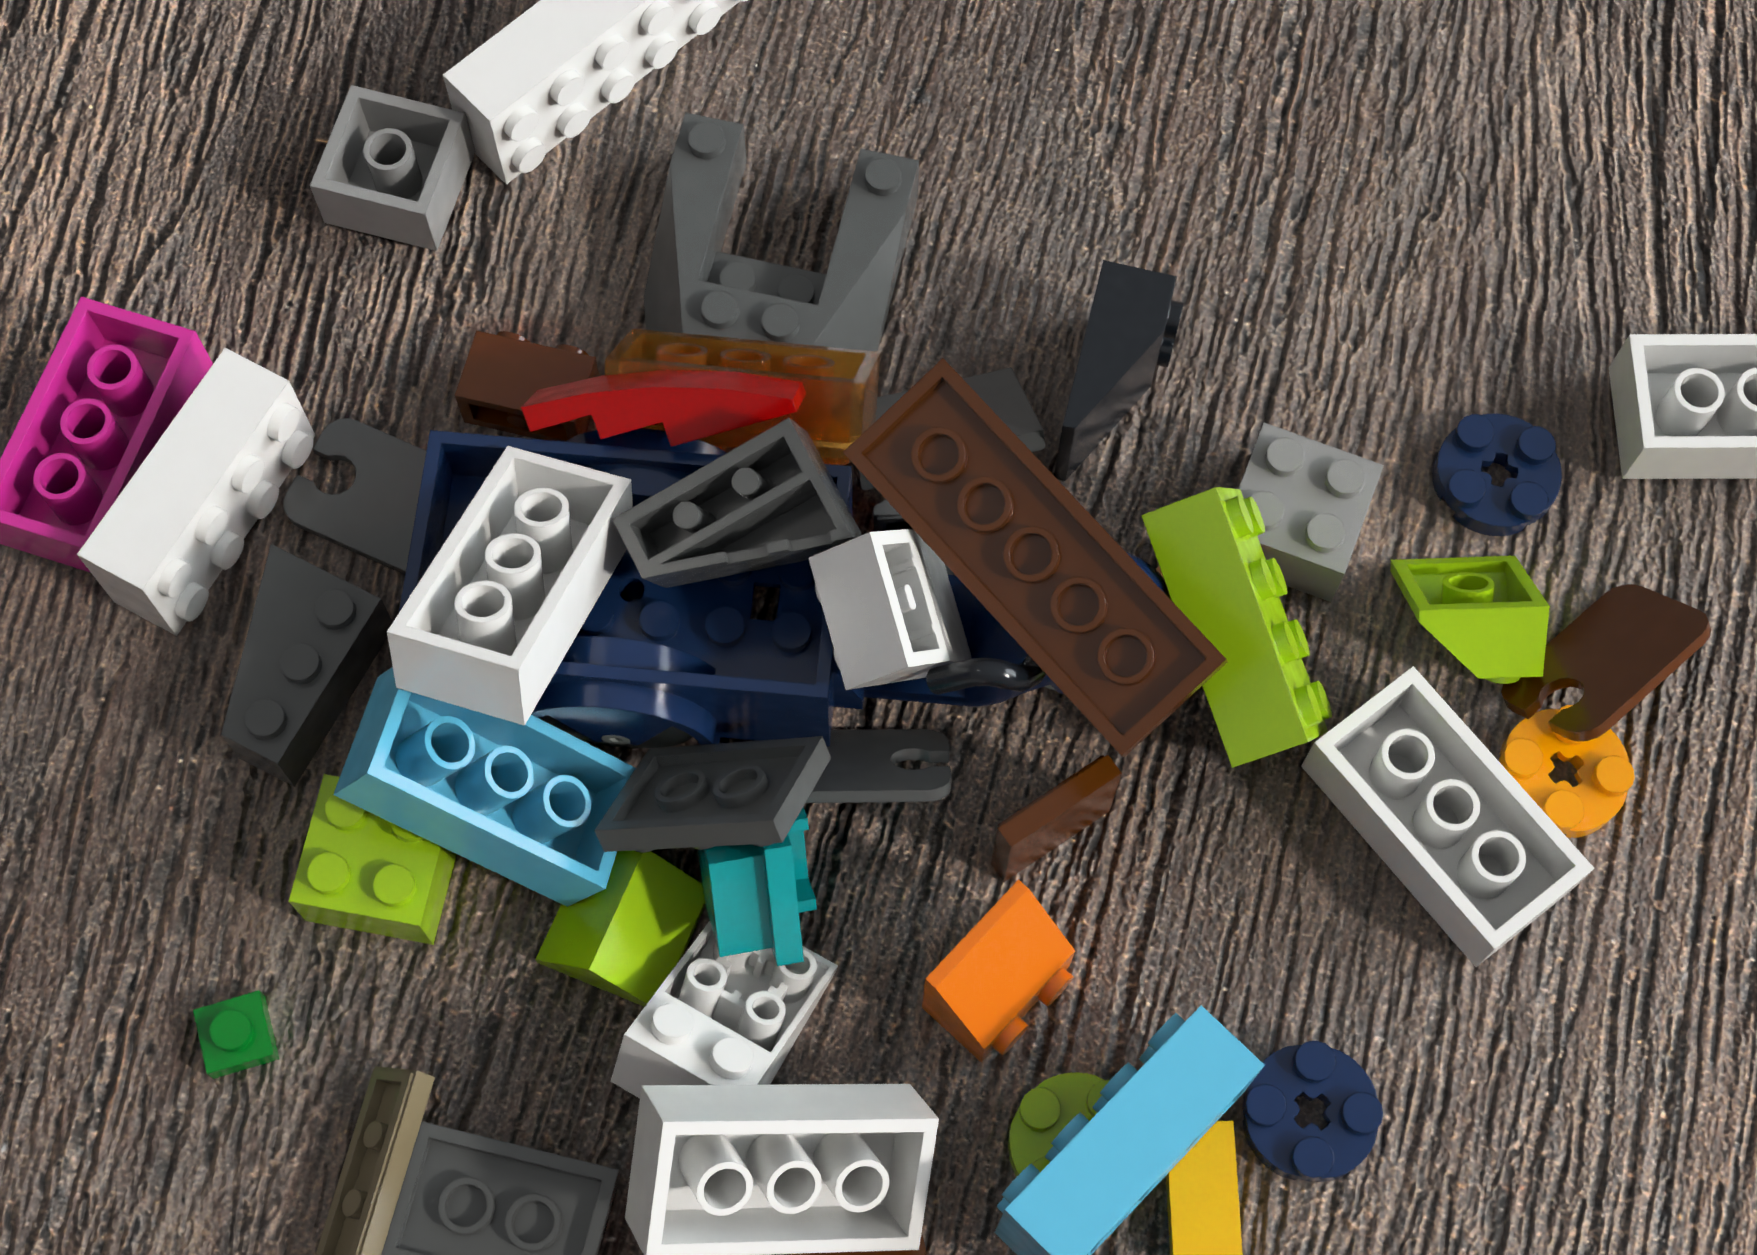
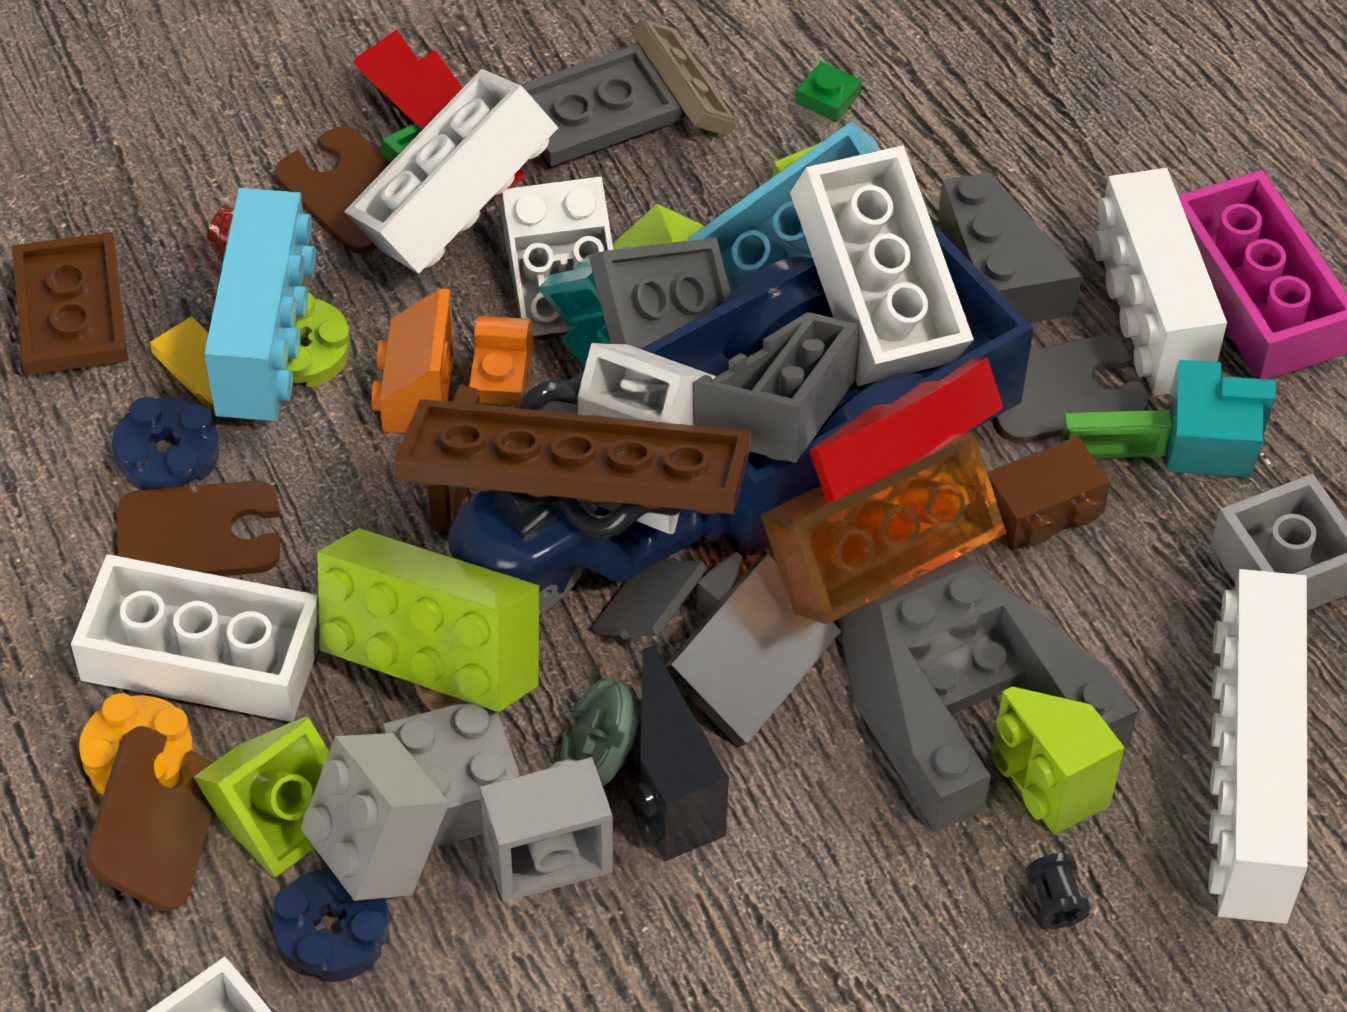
camera: 140 degrees right, 15 degrees down
(320, 317) = (1216, 420): none -> teal plate
(402, 392) = (1120, 432): none -> bright green tile
(787, 130) = (1056, 755): none -> lime slope
(879, 64) = (1057, 890): none -> black bush
(903, 913) = (502, 359): none -> orange brick
(1147, 437) = (604, 727): none -> sand green tile
(1267, 374) = (547, 828): none -> light grey brick
(1355, 991) = (194, 525): none -> reddish brown piece
(1422, 482) = (374, 816): none -> light grey brick

